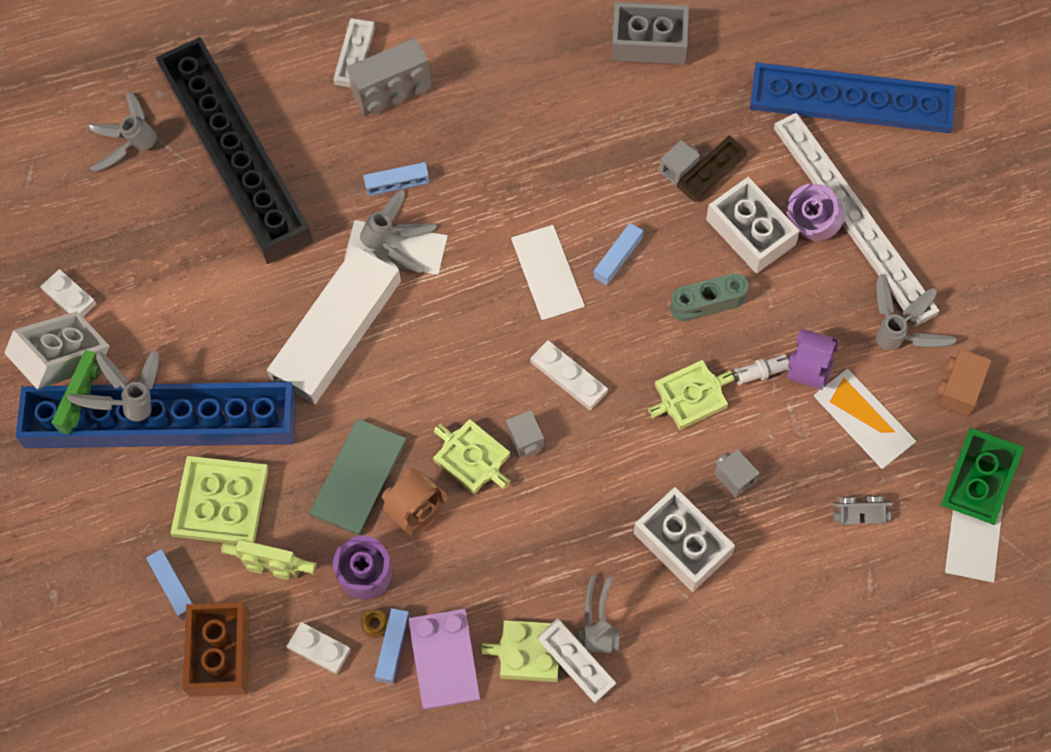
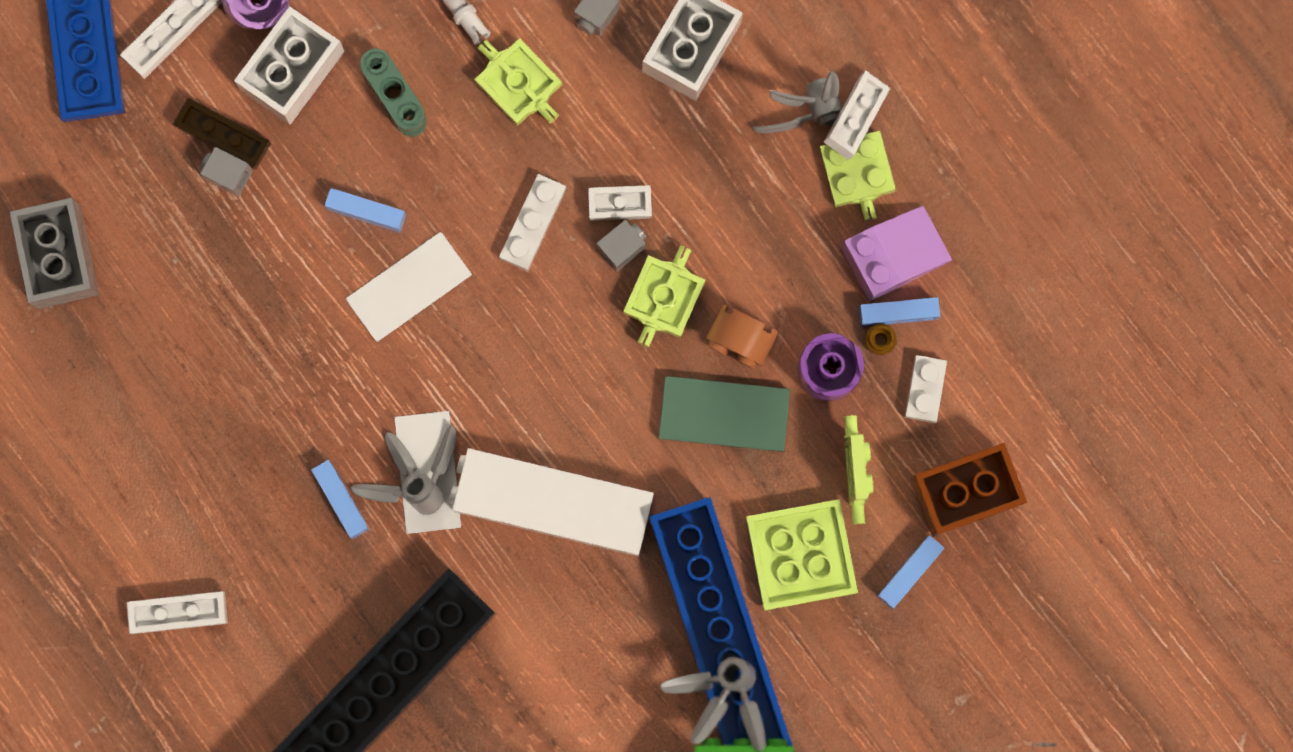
camera: 115 degrees left, 15 degrees up
(389, 77) = (209, 547): light grey brick -> none
(562, 444) = (620, 203): none -> white plate

